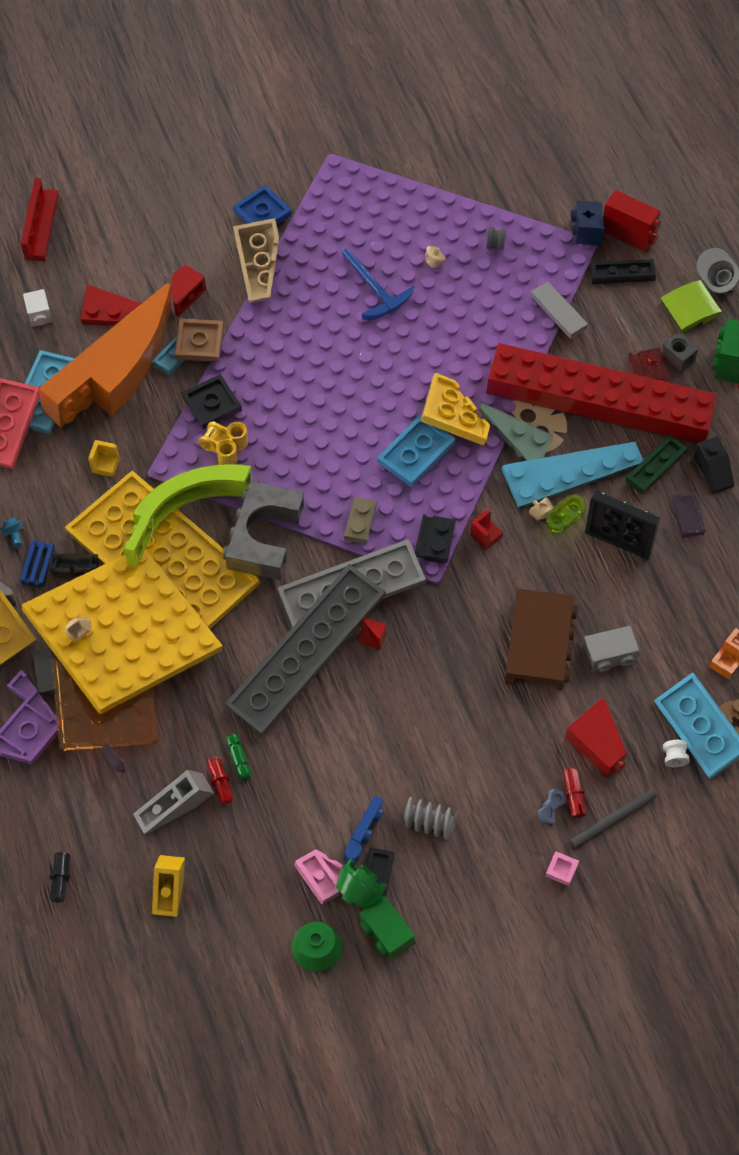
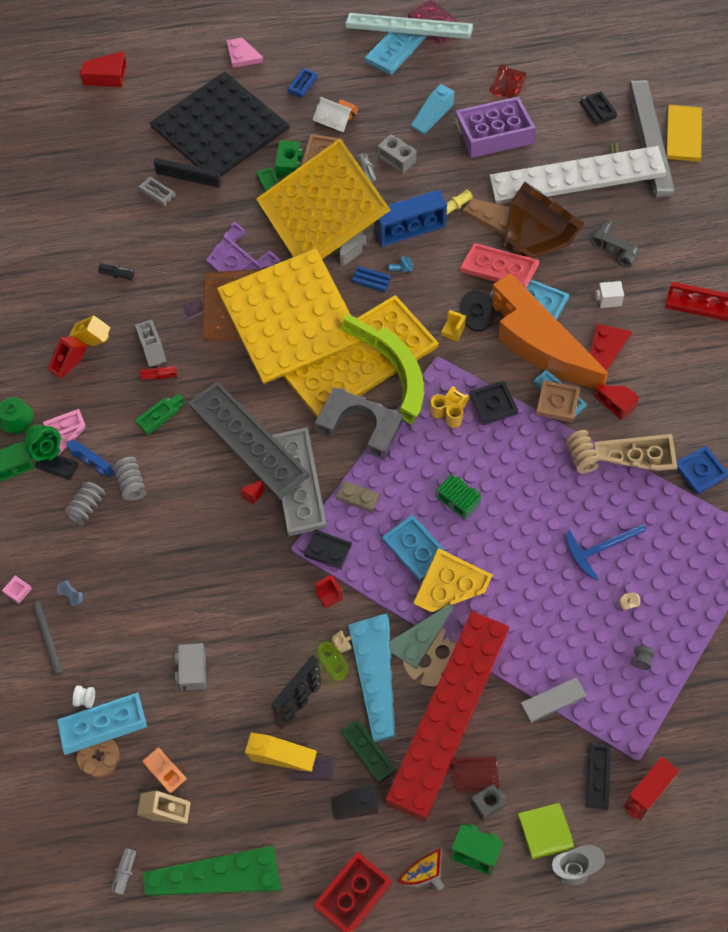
camera: 100 degrees right, 0 degrees up
(71, 443) = (478, 310): none -> black piece
(72, 564) = (359, 304): black hinge -> none
(78, 628) = (283, 276): tan piece -> none
(212, 902) = (66, 355): none -> red slope
(238, 757) = (174, 388): green axle -> none
(263, 307) = (582, 452): none -> tan piece
(282, 764) = (159, 413): none -> green hinge
(343, 418) = (458, 496): none -> green brick
(384, 773) = (129, 479): none -> light grey piece
(541, 637) = (214, 613): reddish brown panel -> none
(574, 793) = (75, 612): red axle -> none
(587, 222) = (645, 747): dark blue brick -> none
(598, 739) = (113, 639): red slope -> none
(685, 540) = (279, 752): none -> yellow slope

